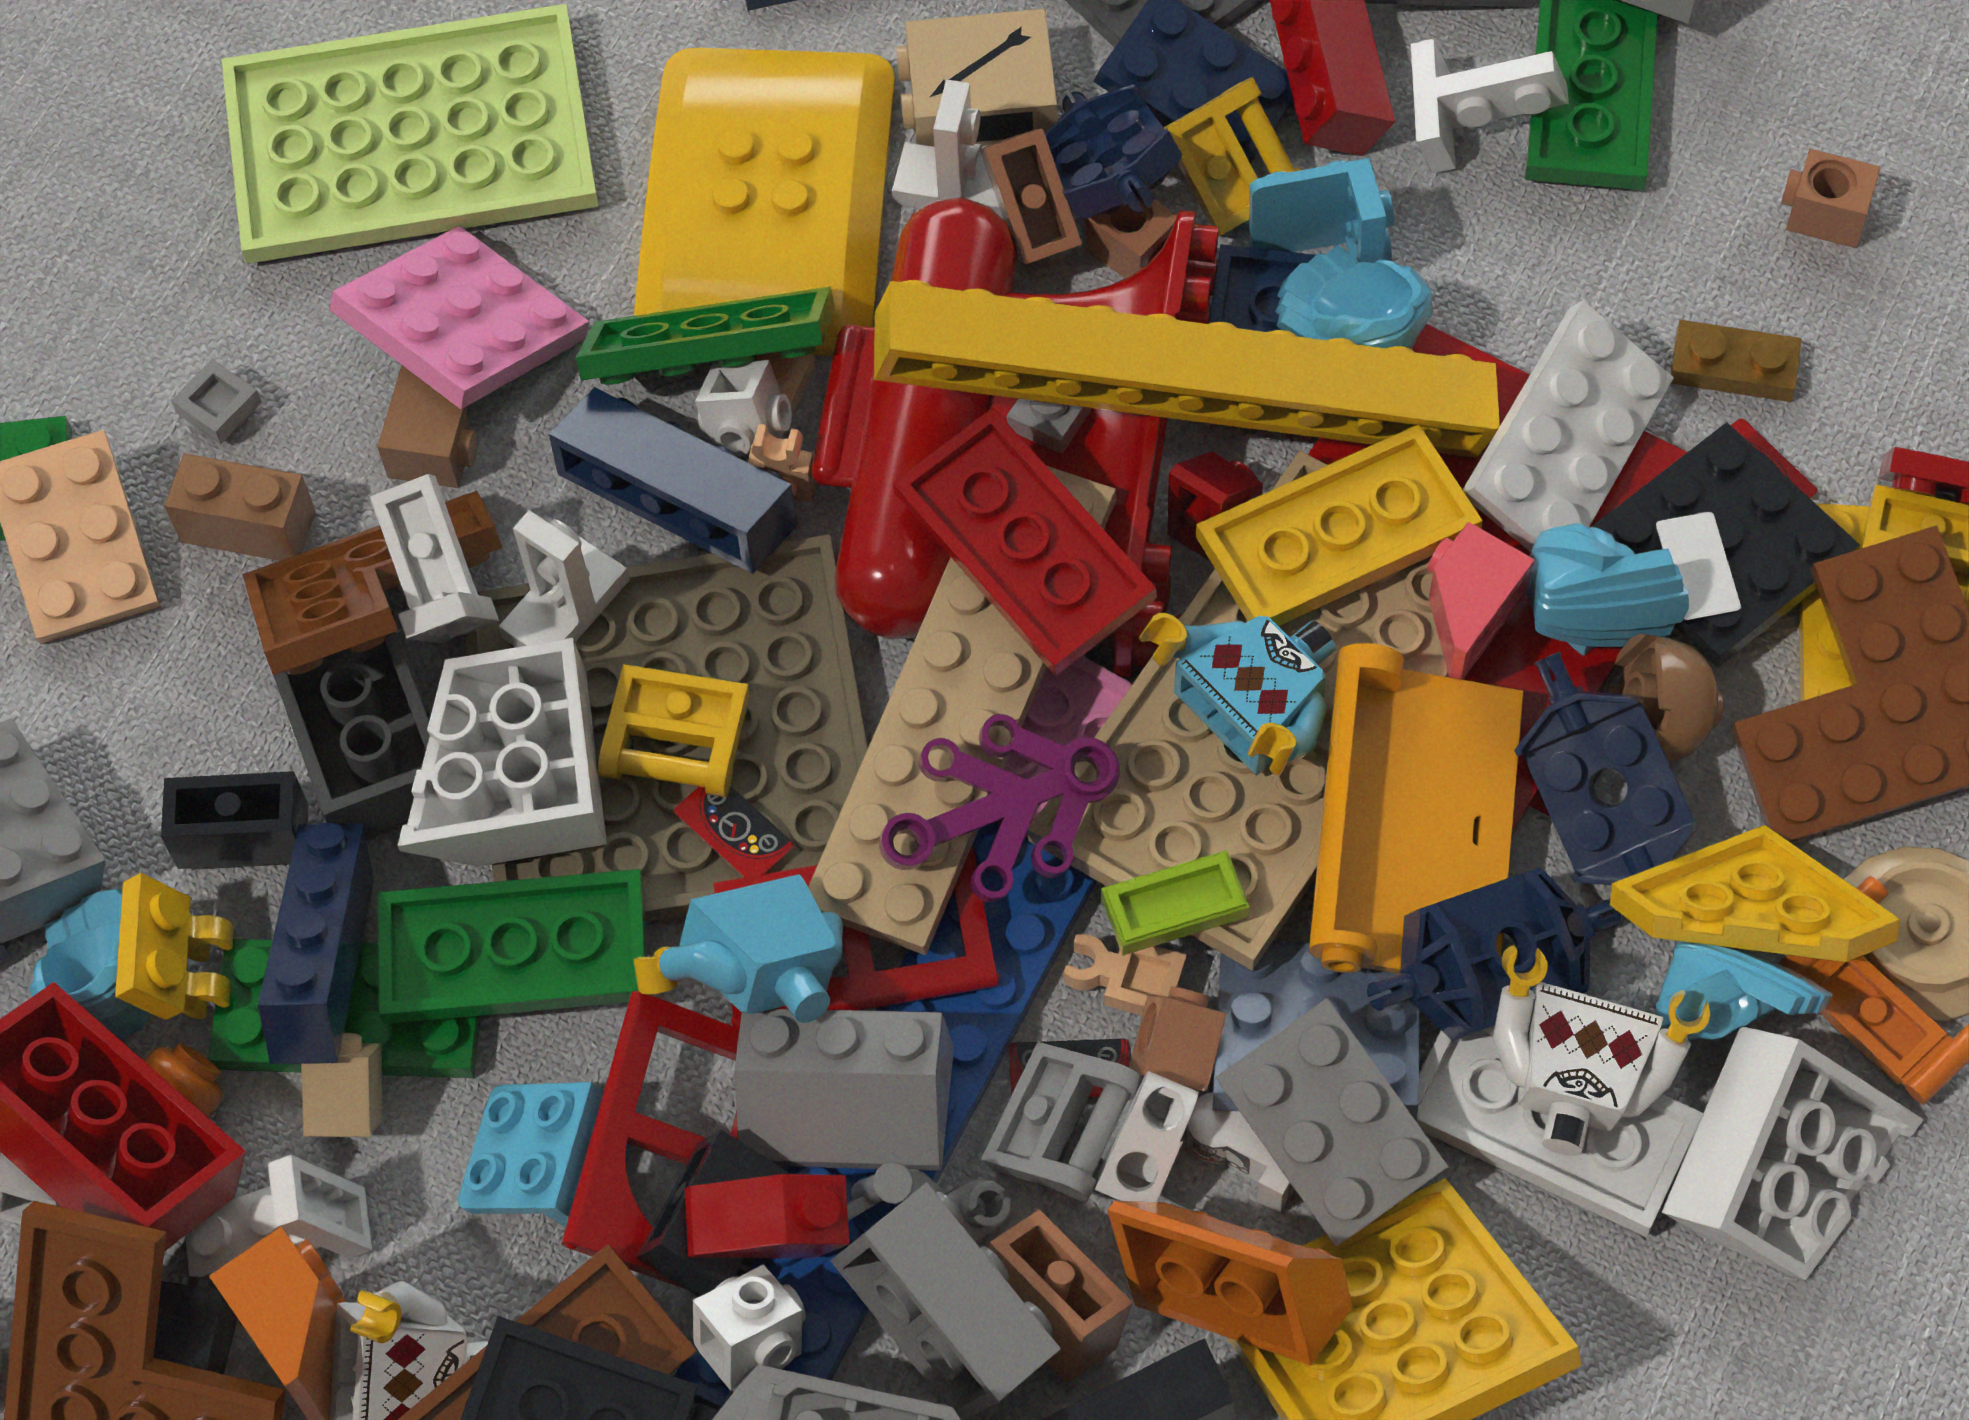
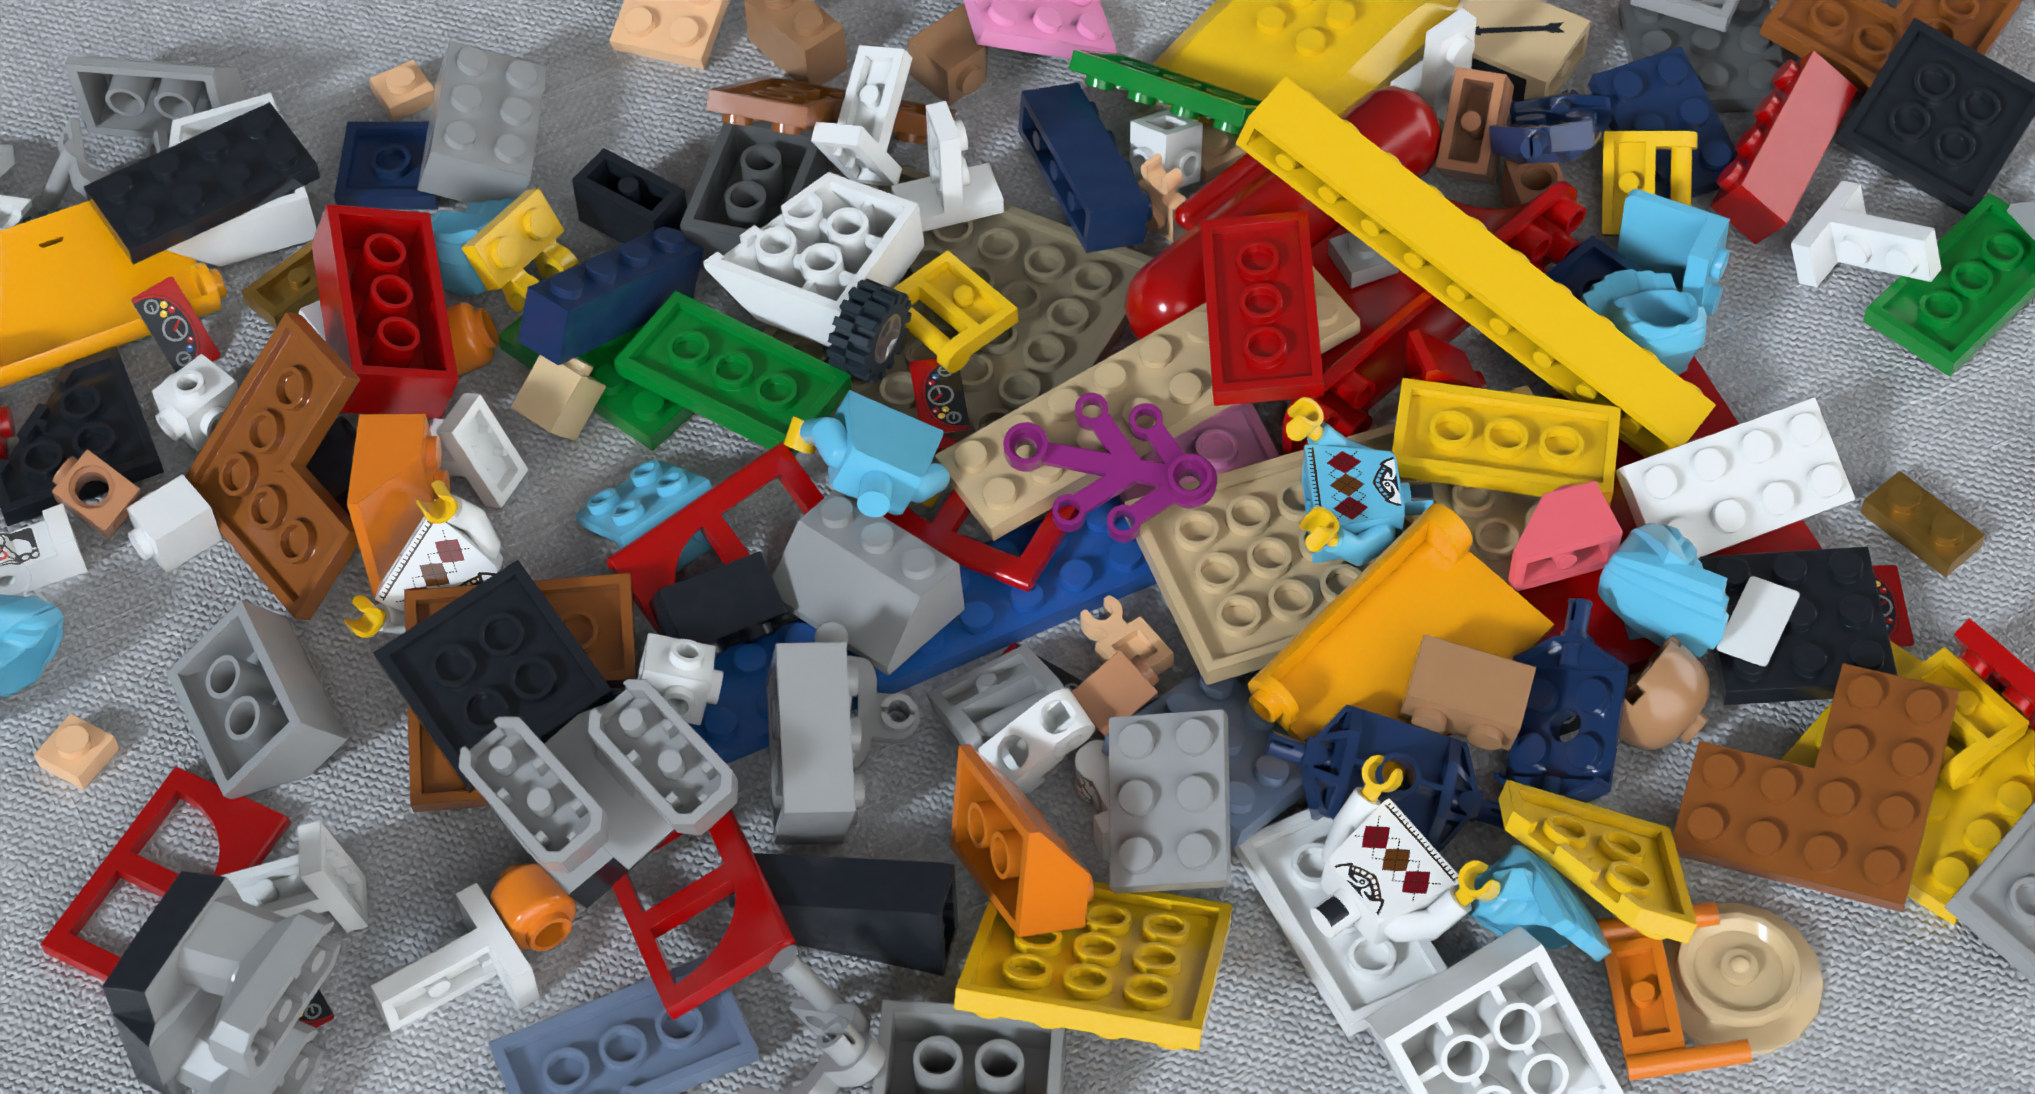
camera: 35 degrees right, 10 degrees down
(626, 810) = (869, 330): none -> black wheel
(767, 1217) = (739, 617): red slope -> none
(1068, 1288) = (898, 795): nougat brick -> none
(1175, 902) = (1182, 601): lime tile -> none
(1511, 820) = (1467, 693): none -> medium nougat brick

